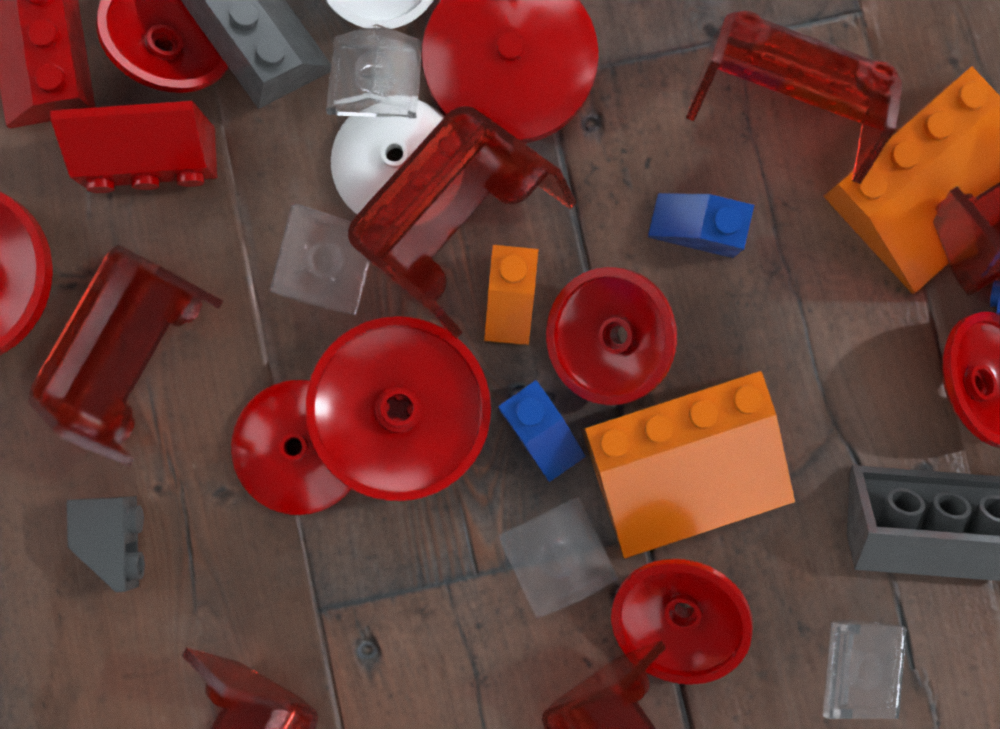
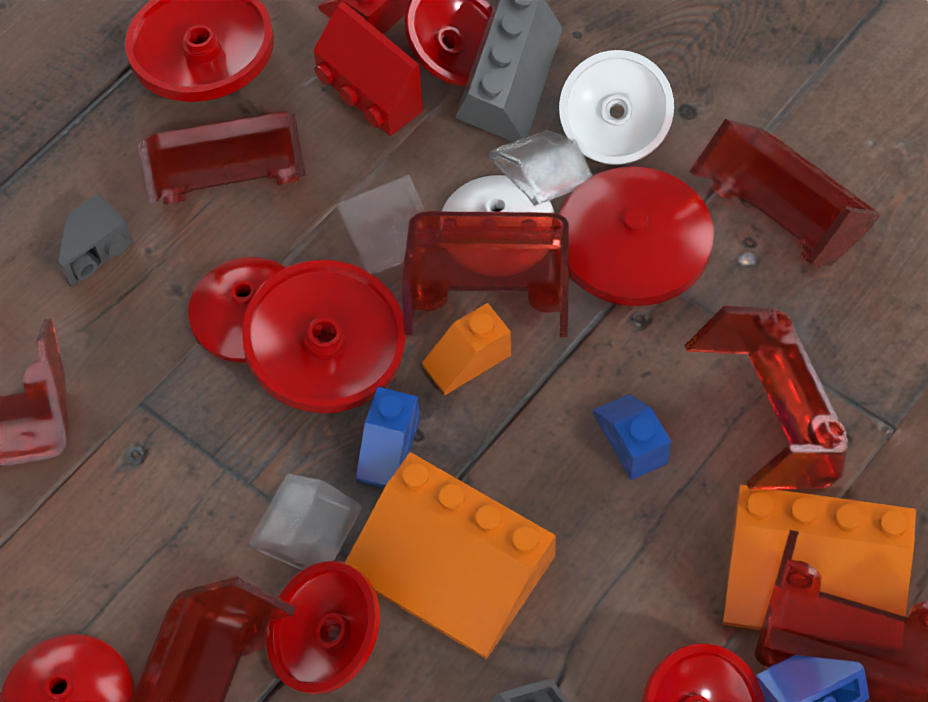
camera: 60 degrees right, 25 degrees down
(586, 343) = (493, 426): red dish -> none

